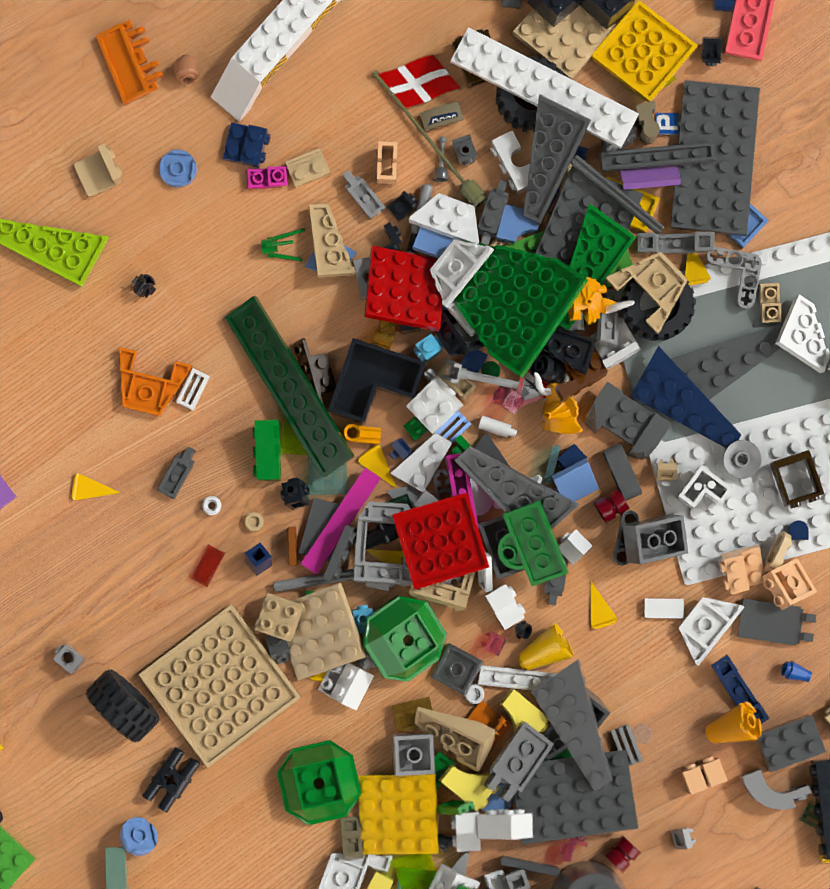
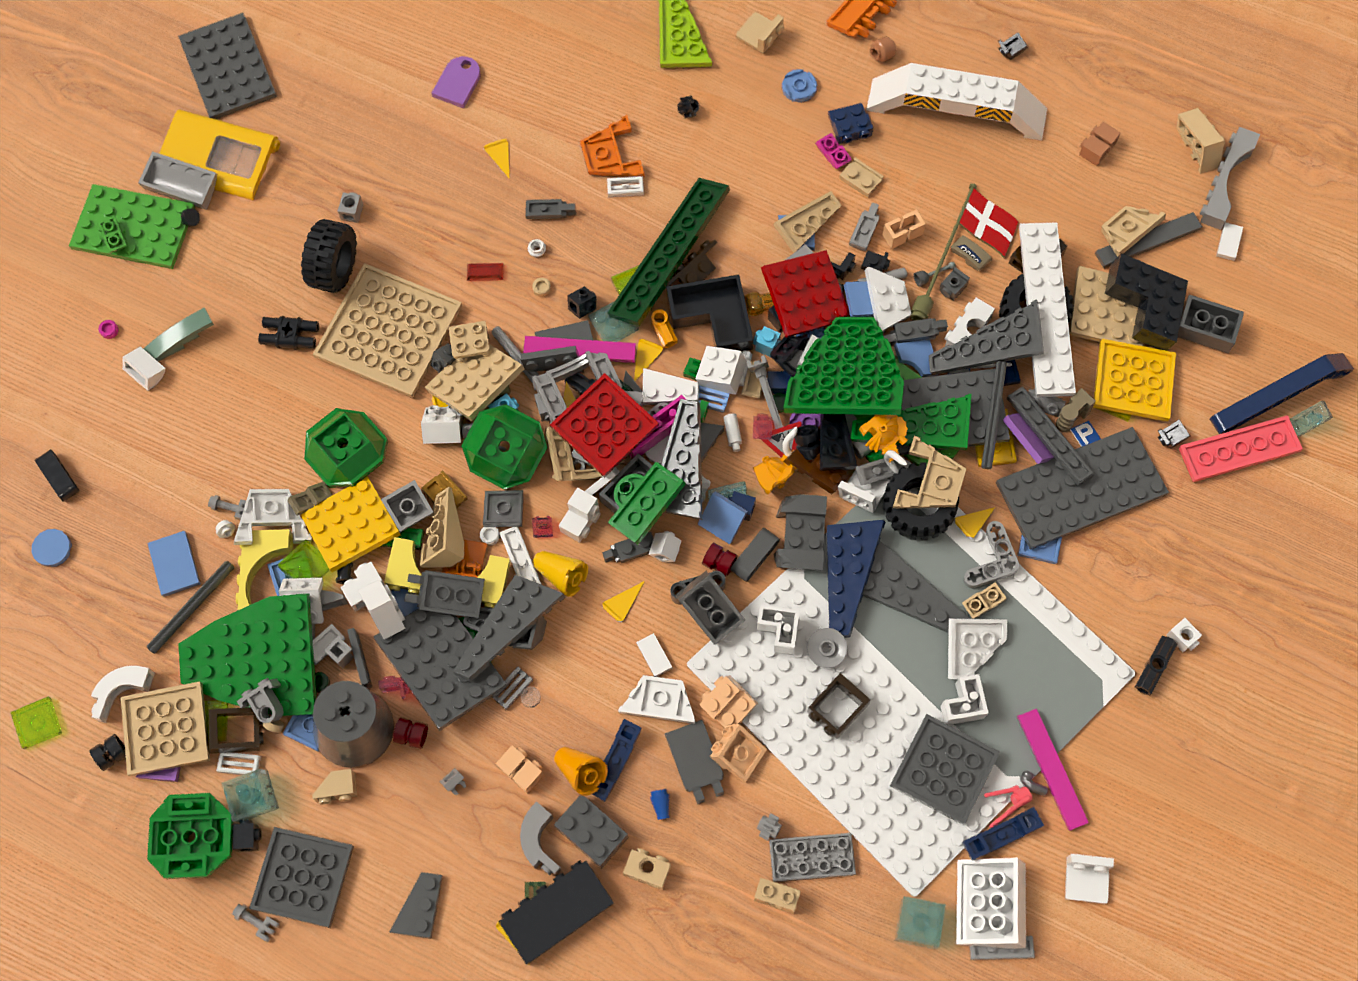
camera: 60 degrees right, 15 degrees down
(138, 836) = (227, 330): medium blue tile -> none
(258, 559) = (510, 301): dark blue brick -> none
(267, 450) = (606, 262): green wedge -> none
(270, 245) = (778, 182): green plant -> none
(292, 546) = (537, 323): dark orange tile -> none
(401, 449) = (669, 364): dark blue tile -> none
(455, 807) = (378, 561): green tile -> none
(457, 267) = (848, 320): white wing -> none
(523, 630) = (567, 548): black plate -> none
(666, 471) = (777, 588): tan tile -> none
(676, 243) = (984, 493): light grey slope -> none
(776, 554) = (754, 726): tan plate -> none
(798, 530) = (791, 734): dark blue tile -> none

